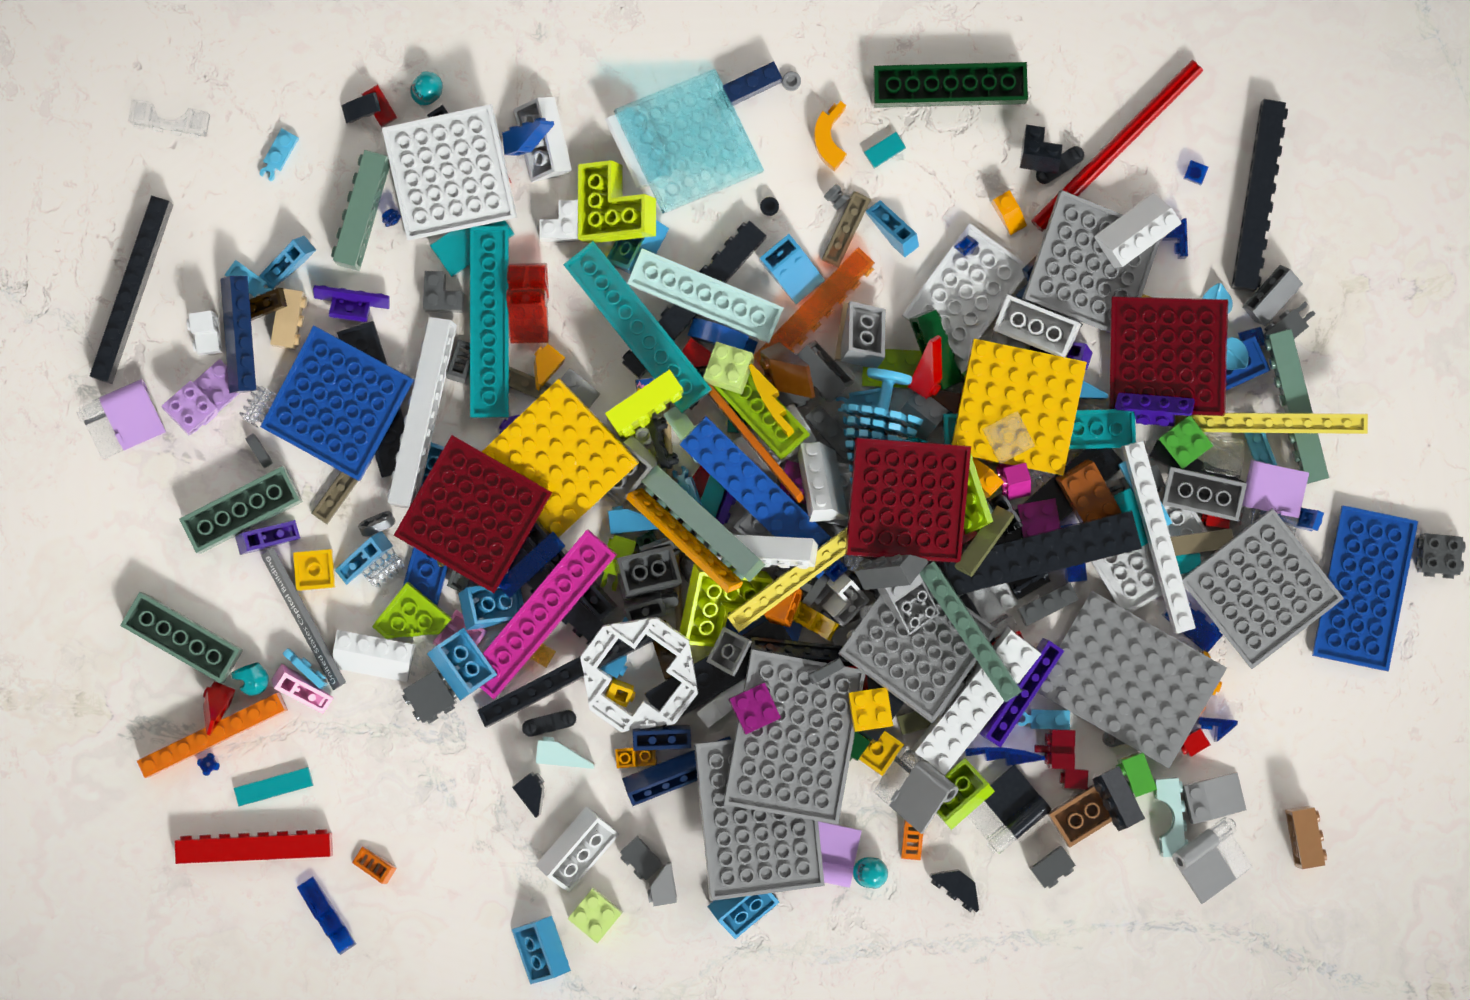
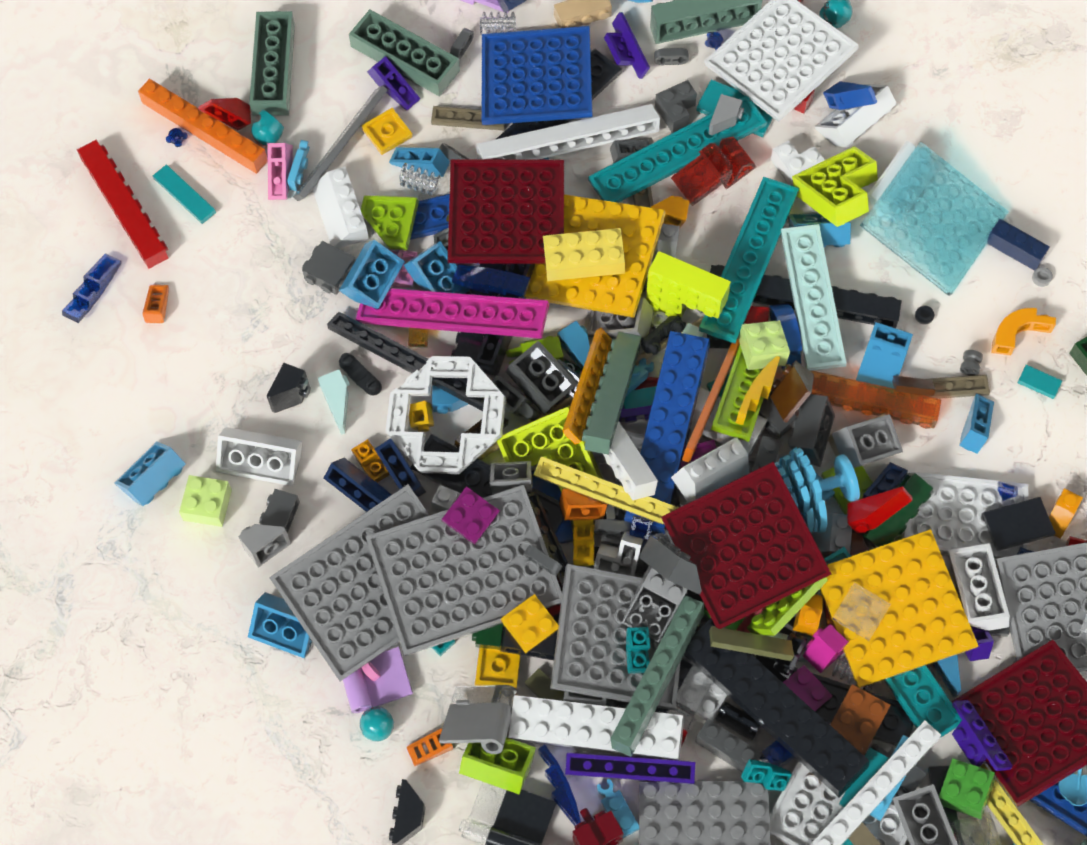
camera: 60 degrees right, 20 degrees down
(385, 266) = (671, 56): none -> dark grey beam
(483, 259) = (726, 114): none -> light grey slope
(562, 474) = (584, 254): none -> light yellow brick
(827, 854) = (371, 671): none -> bright pink tile
(832, 261) = (913, 385): none -> reddish brown tile
(904, 341) = (887, 480): none -> dark blue plate
(939, 635) = (637, 649): none -> teal slope
(999, 255) = (1018, 524): none -> black tile
(1091, 587) = (767, 774): none -> teal slope

